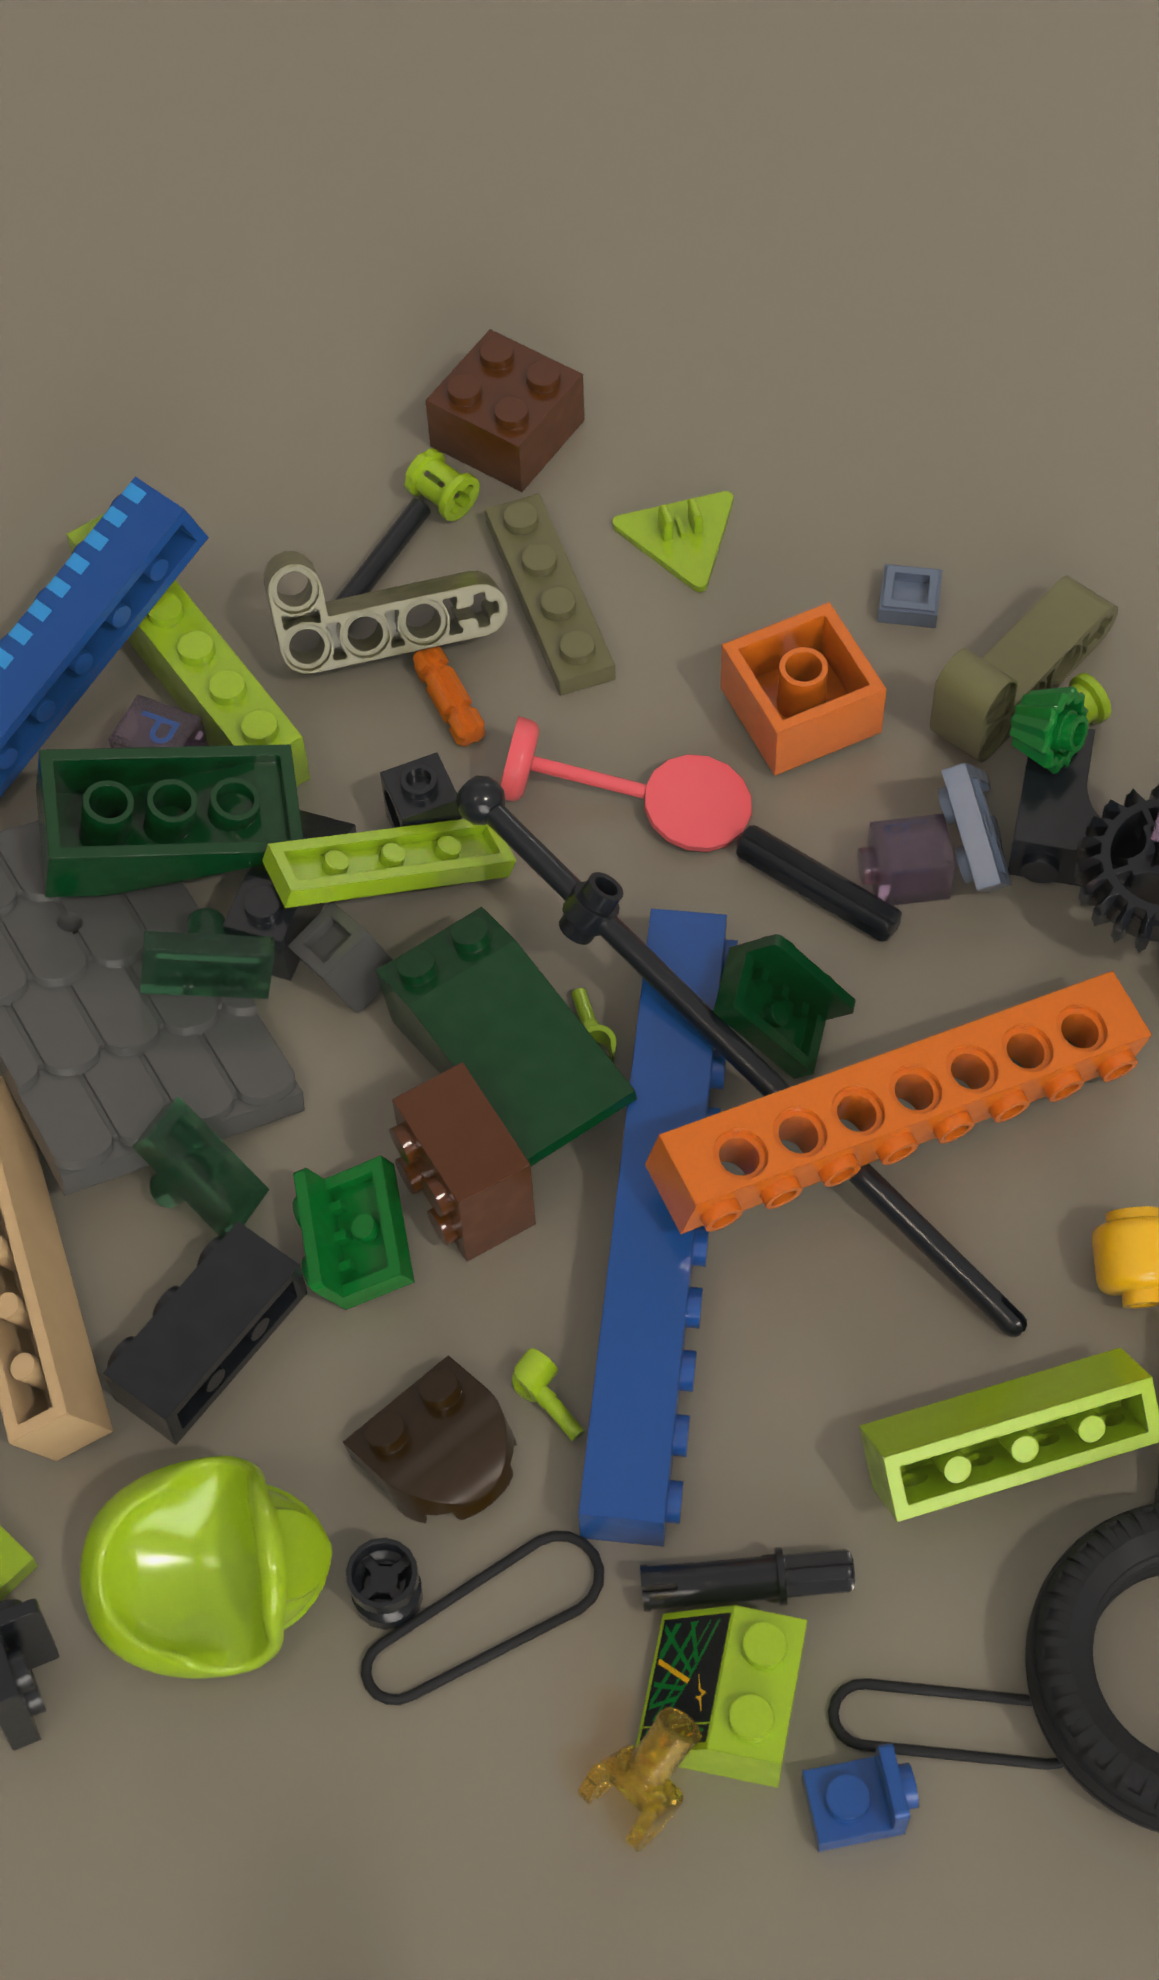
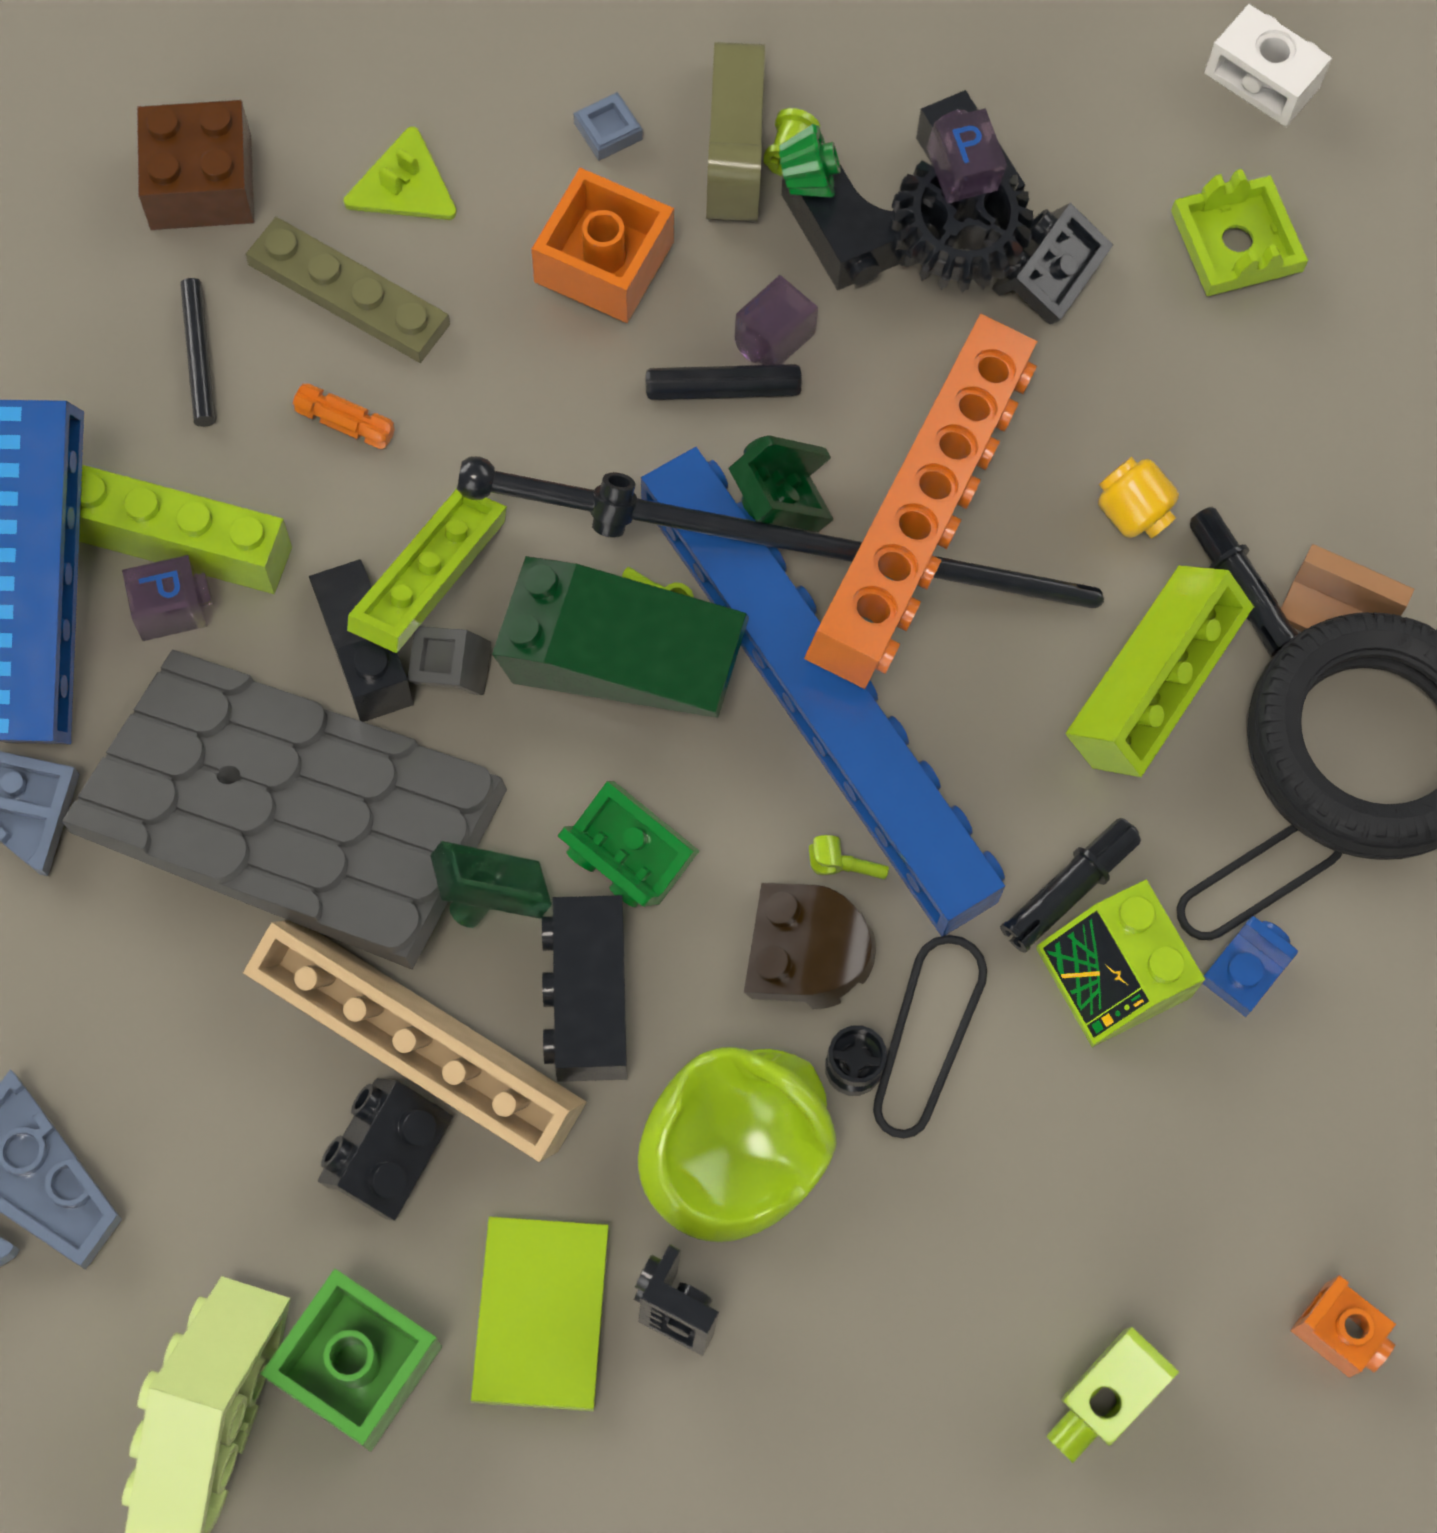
camera: 45 degrees left, 10 degrees up
(160, 814) = (236, 648): dark green slope -> none
(206, 960) = (360, 732): clear green tile -> none
(387, 606) = (301, 342): olive beam -> none
(419, 793) = (402, 507): black brick -> none
(462, 1163) = (670, 744): reddish brown brick -> none
(464, 484) = (179, 246): lime bush -> none
(645, 1773) = (1121, 1049): clear yellow piece -> none
(687, 799) = (582, 377): coral piece -> none
(964, 802) = (789, 258): sand blue wing -> none

